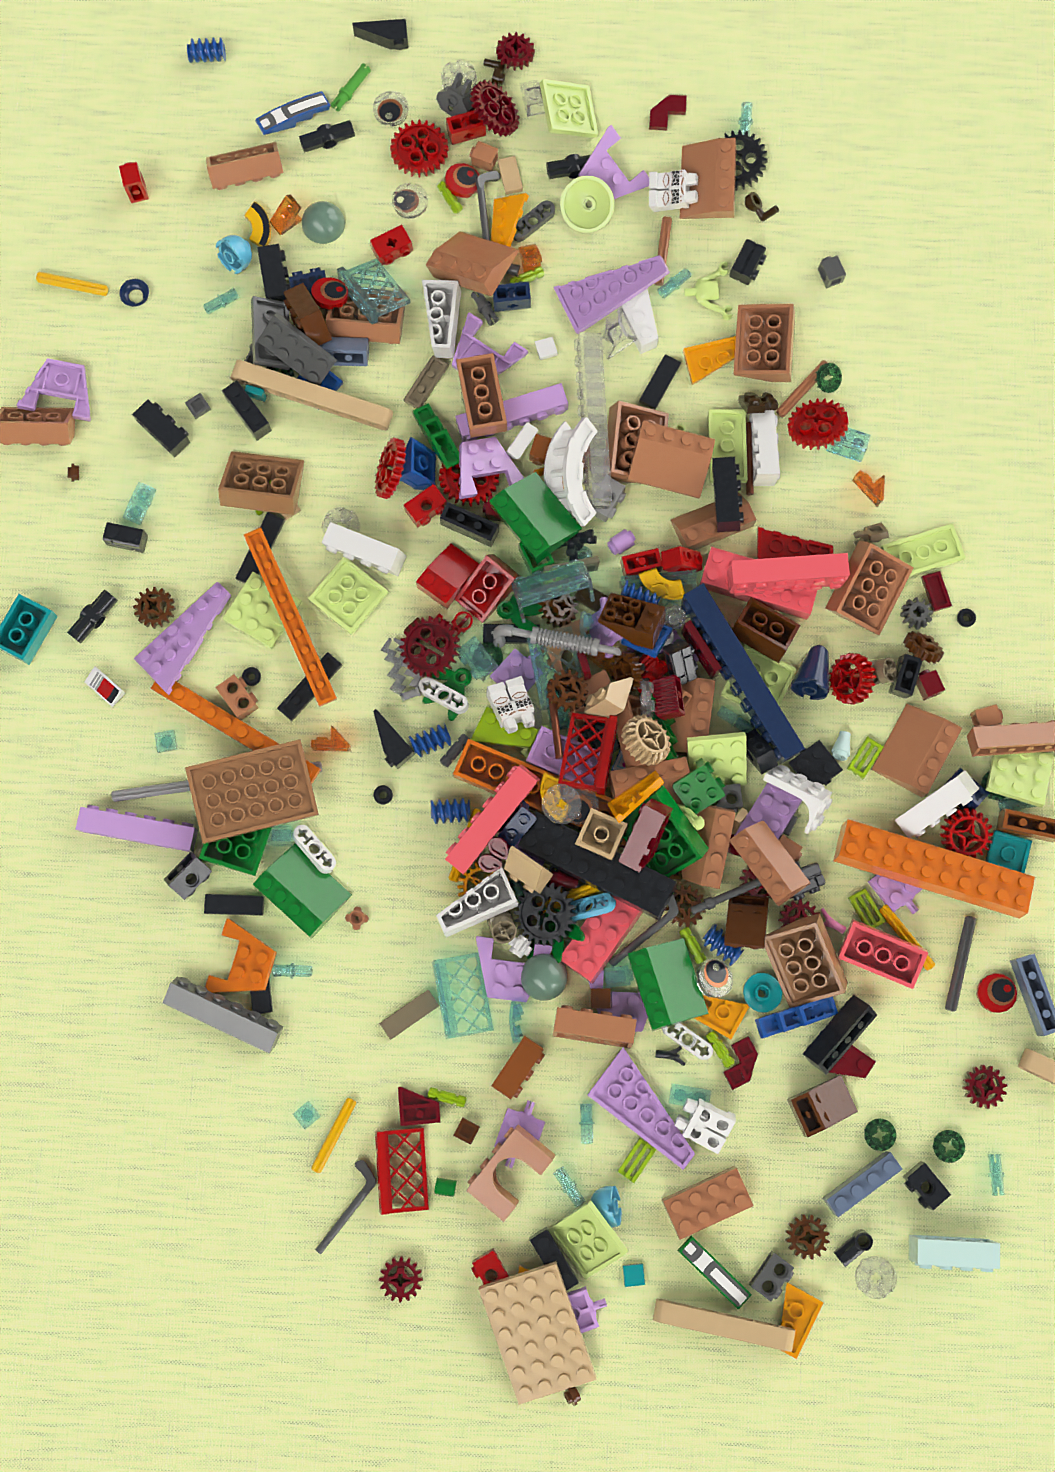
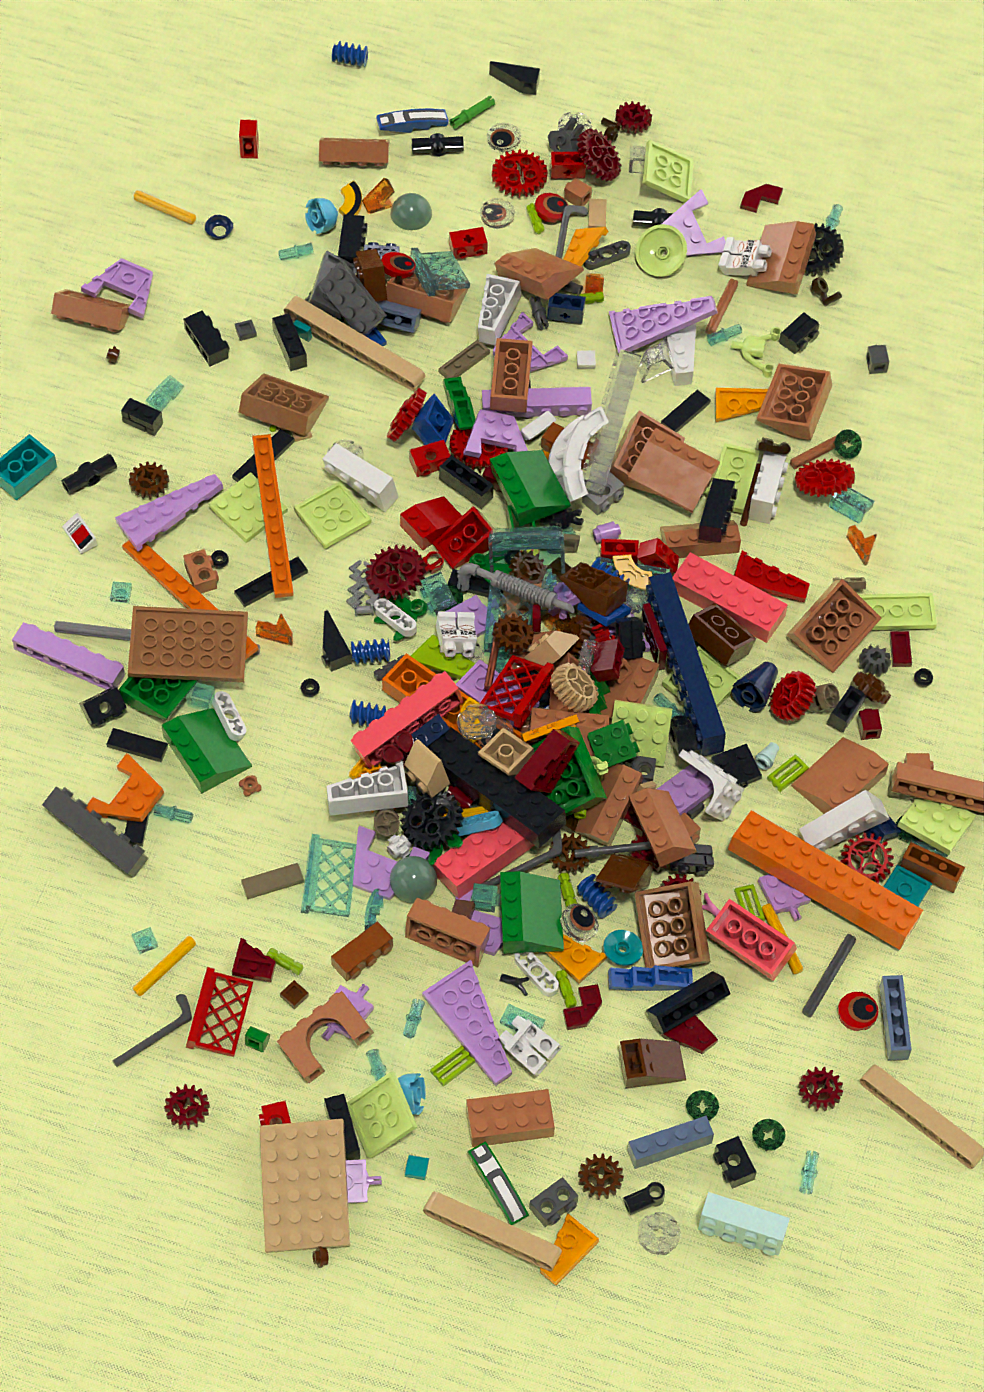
camera: 15 degrees right, 20 degrees down
(788, 573) = (754, 584): coral brick -> none

